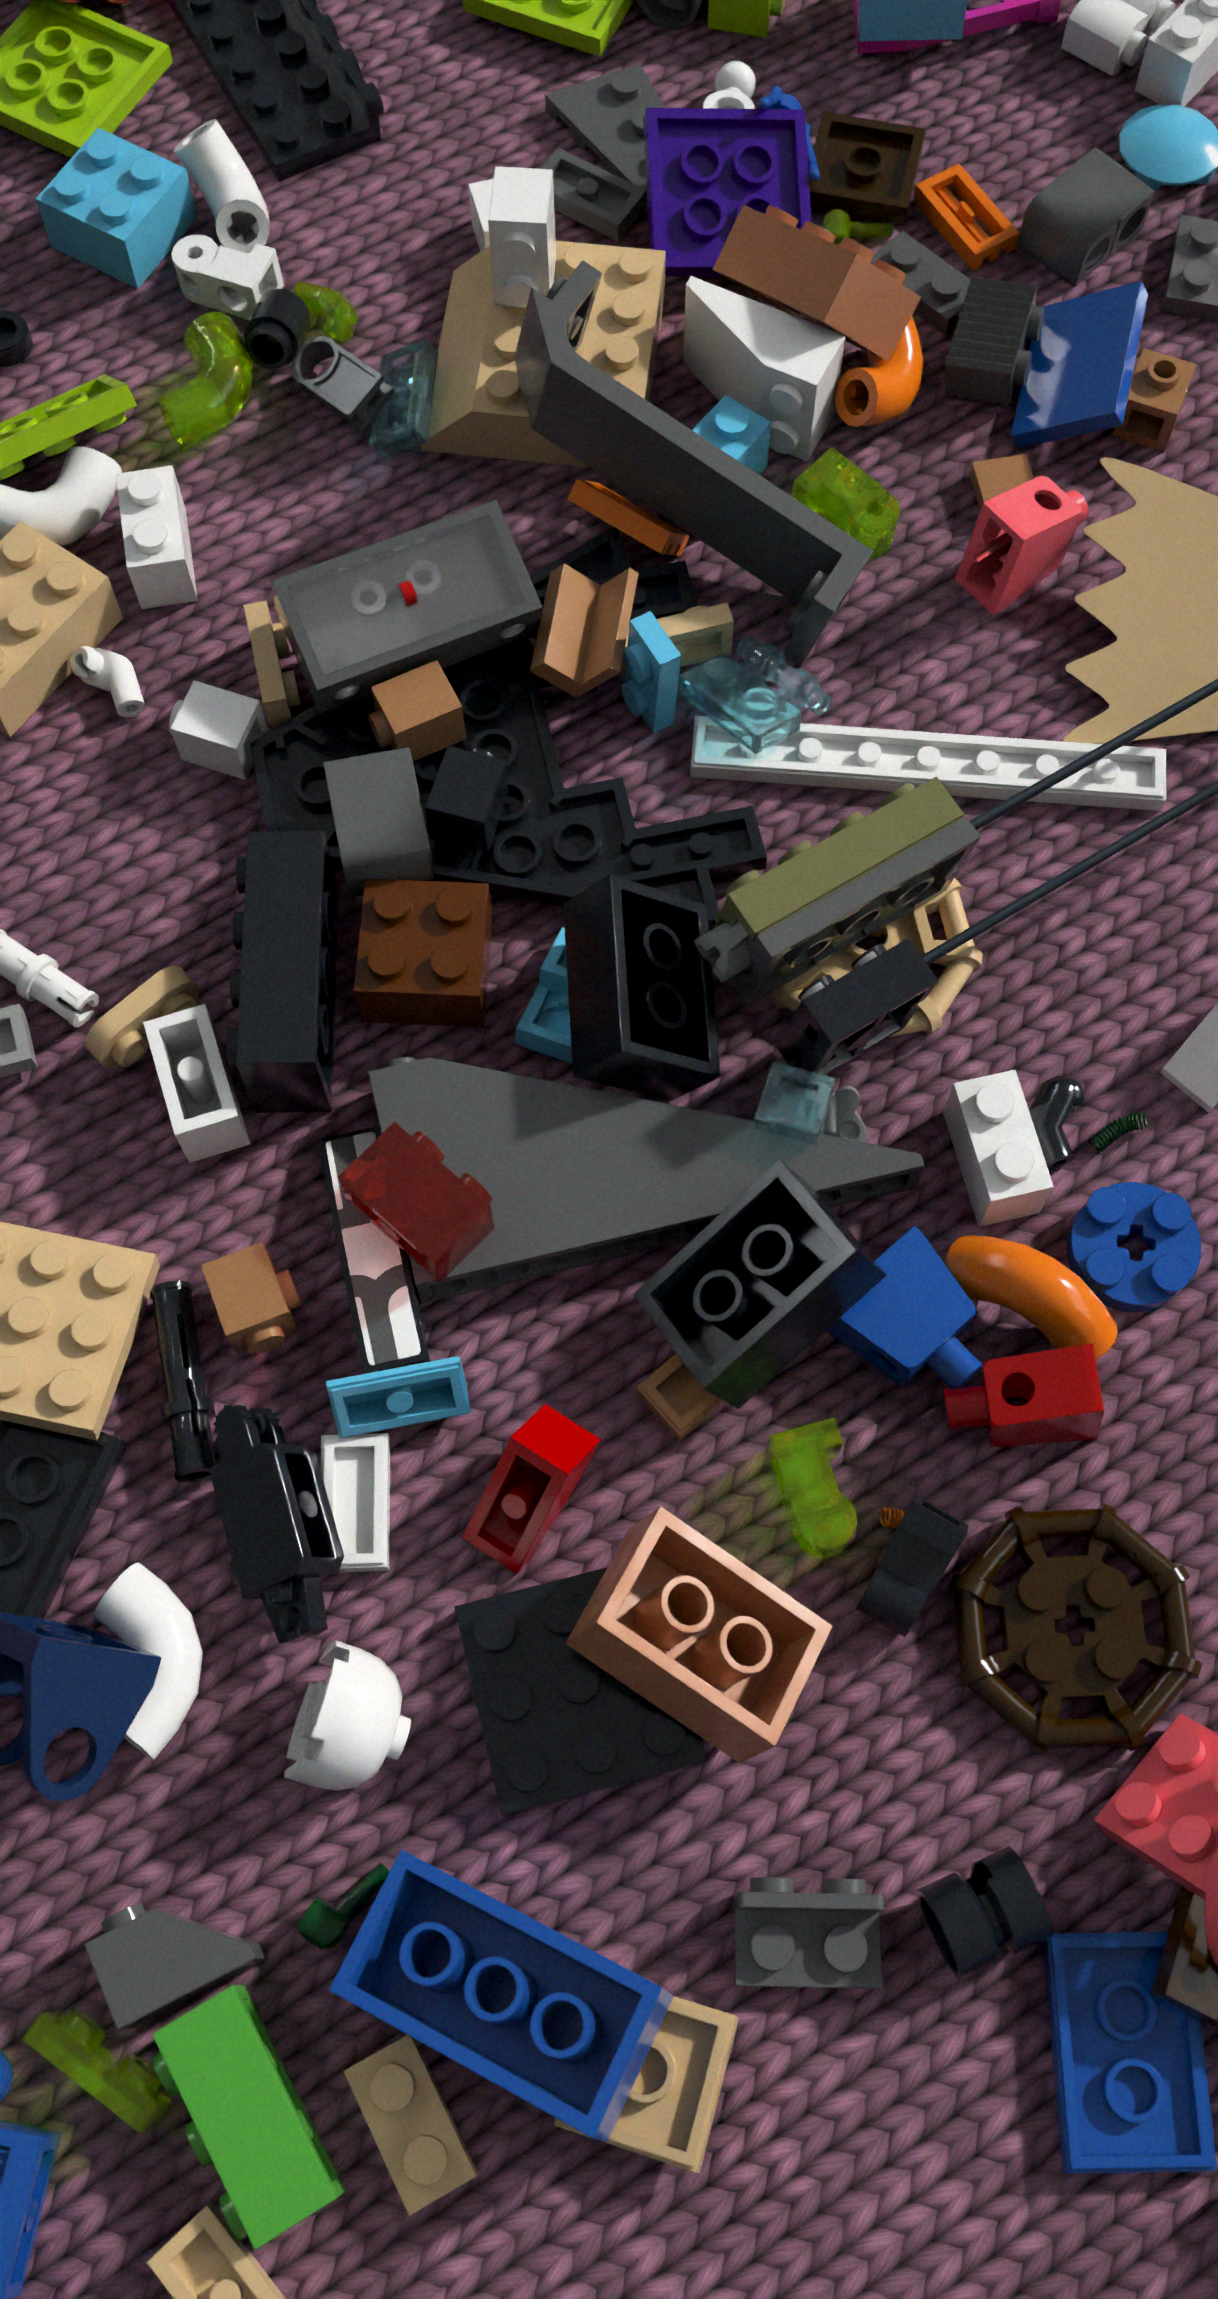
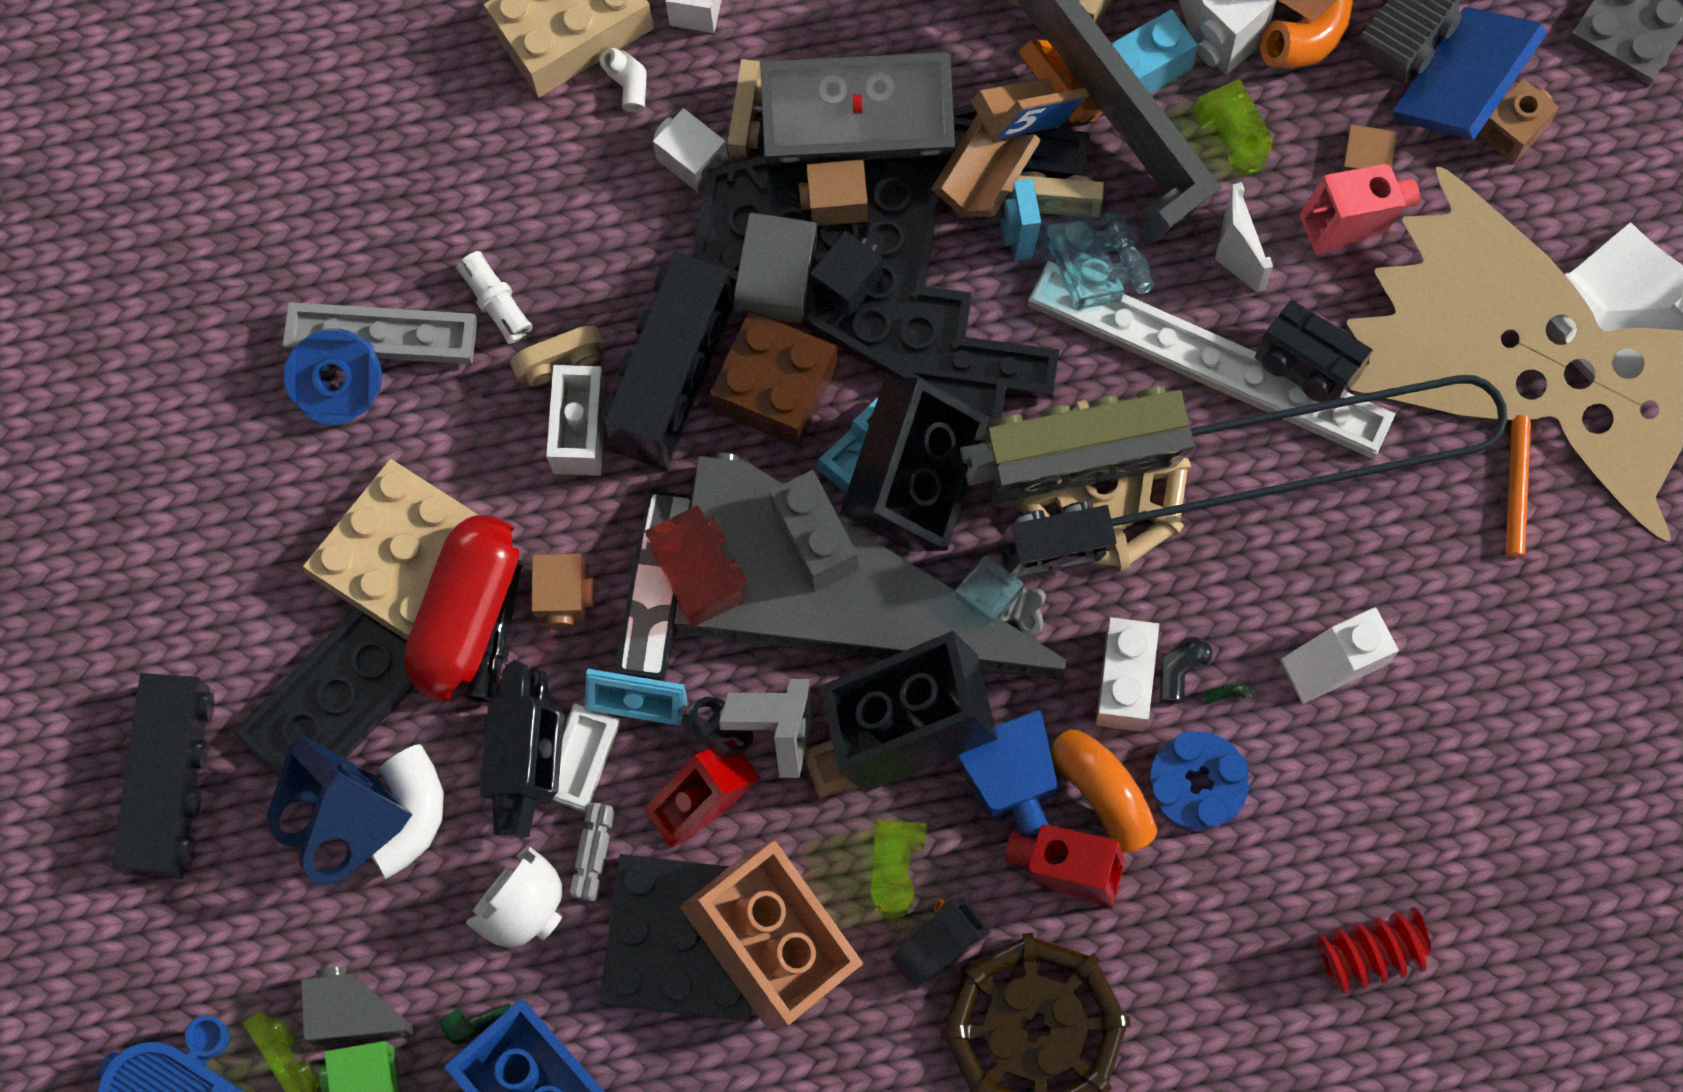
camera: 25 degrees right, 5 degrees up
(129, 1365) = (460, 606): none -> red brick
(416, 1618) = (592, 852): none -> light grey axle
(551, 1104) = (814, 530): none -> dark grey brick
(565, 1356) = (741, 713): none -> light grey piece
(607, 544) = (1025, 107): none -> medium nougat panel
(910, 624) = (1239, 244): none -> white slope
(1048, 709) = (1312, 353): none -> black brick

